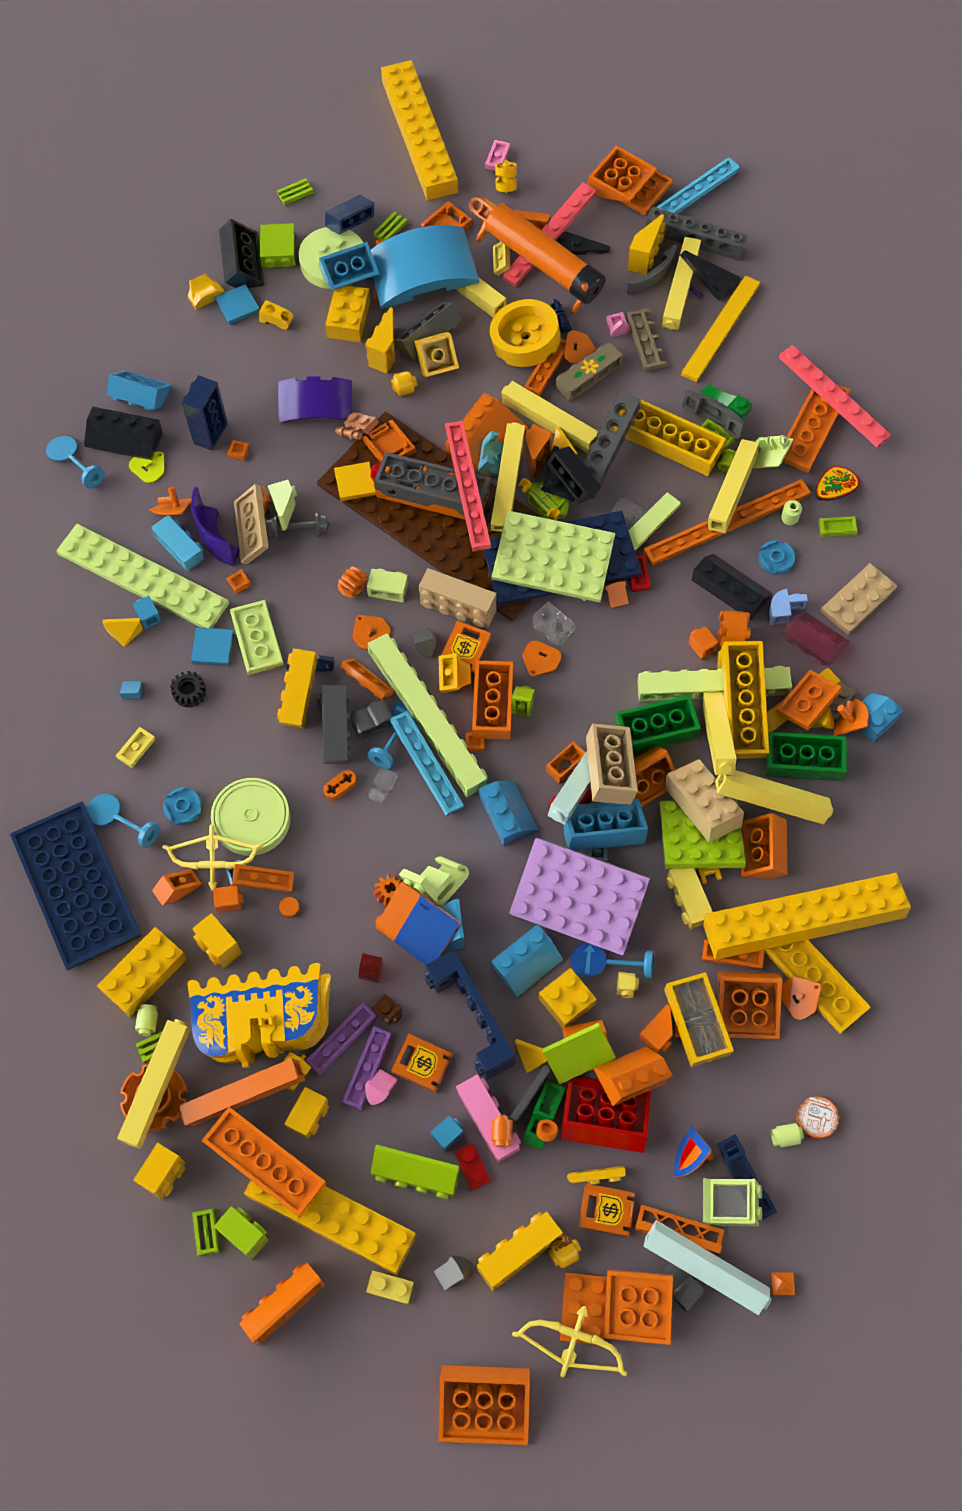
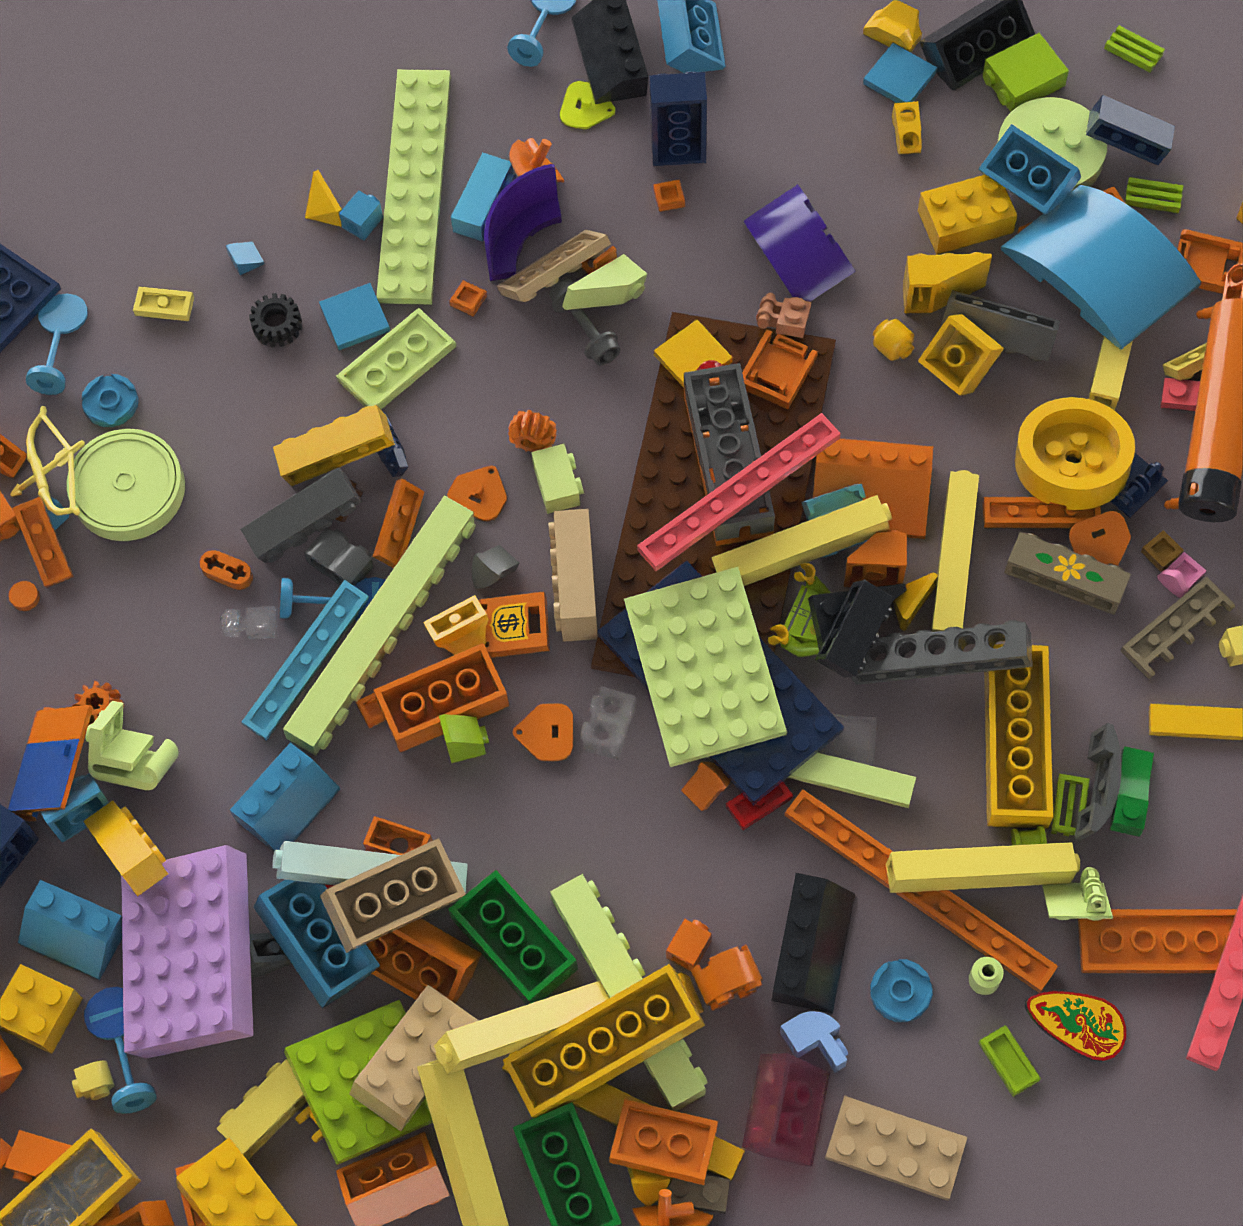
camera: 65 degrees right, 0 degrees up
(499, 901) = (127, 846): none -> yellow brick
(600, 325) = (1162, 551): none -> pearl gold plate

